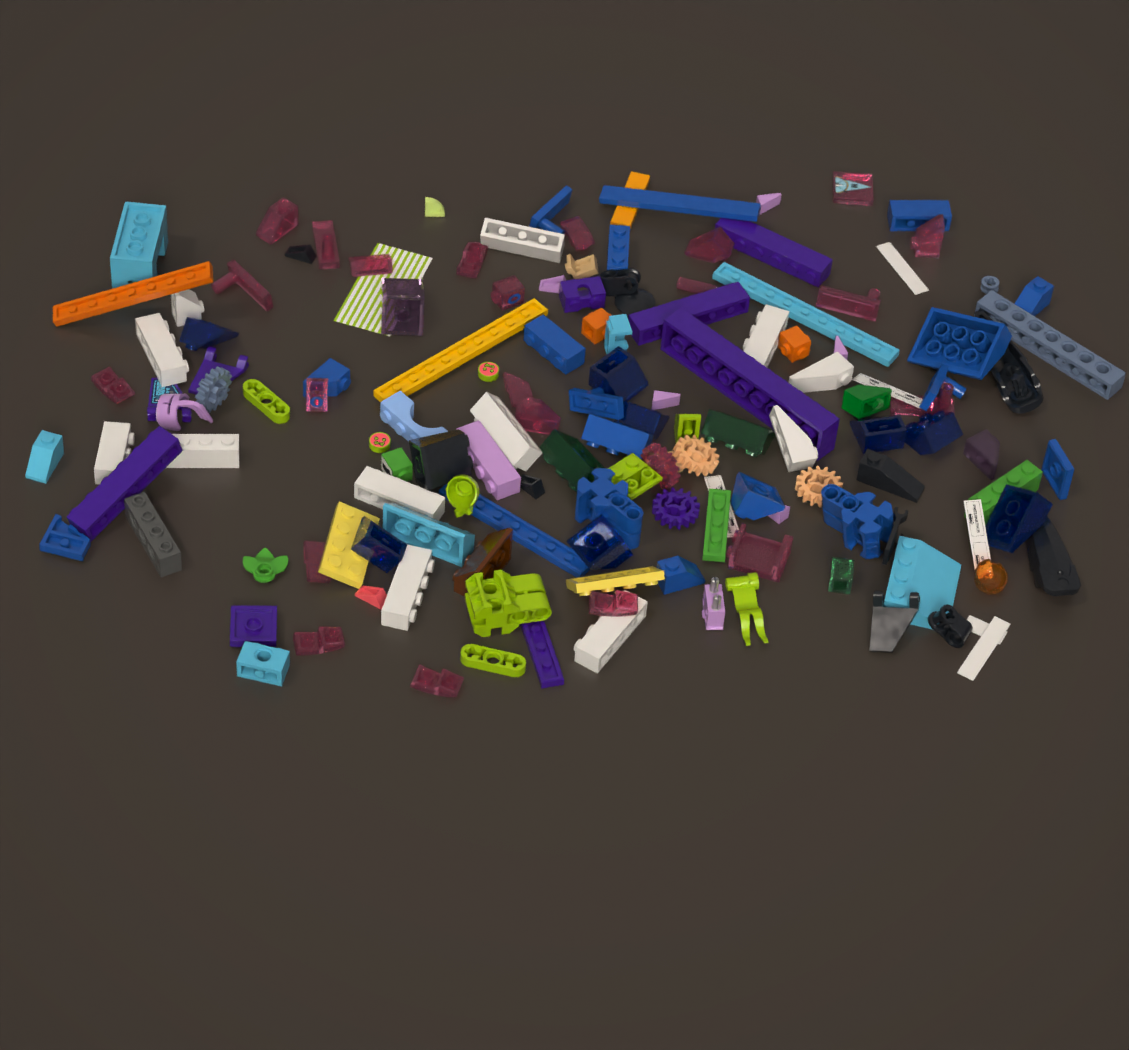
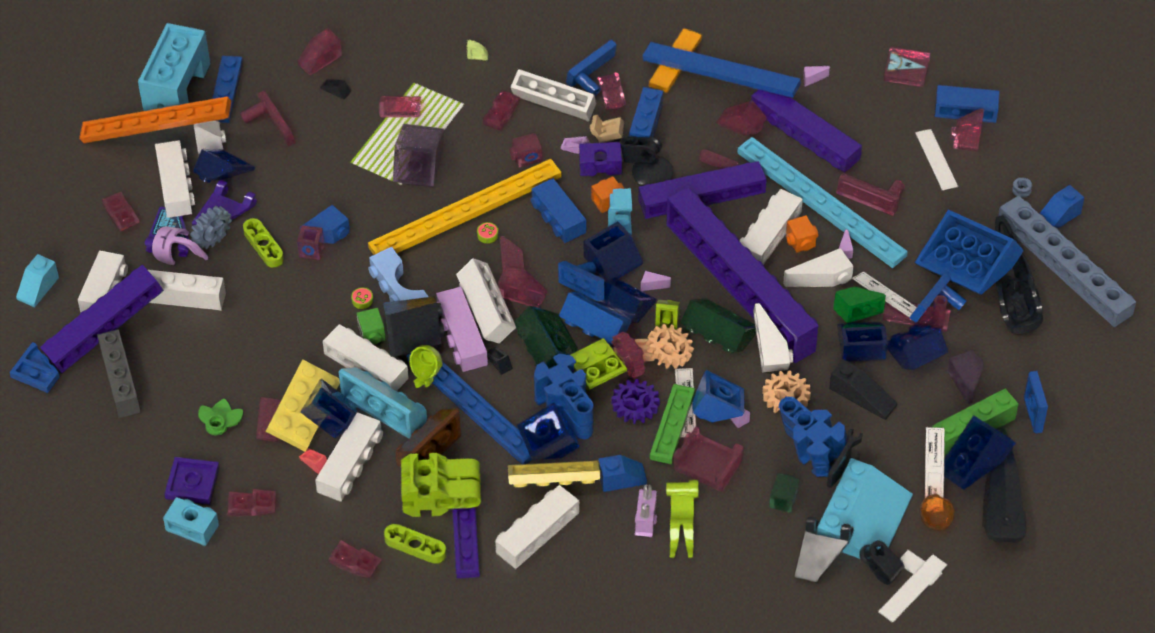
camera: 15 degrees right, 5 degrees up
(189, 253) = (228, 80): none -> blue plate
(325, 244) = (362, 80): clear pink piece -> none
(614, 605) = (548, 501): clear pink slope -> none

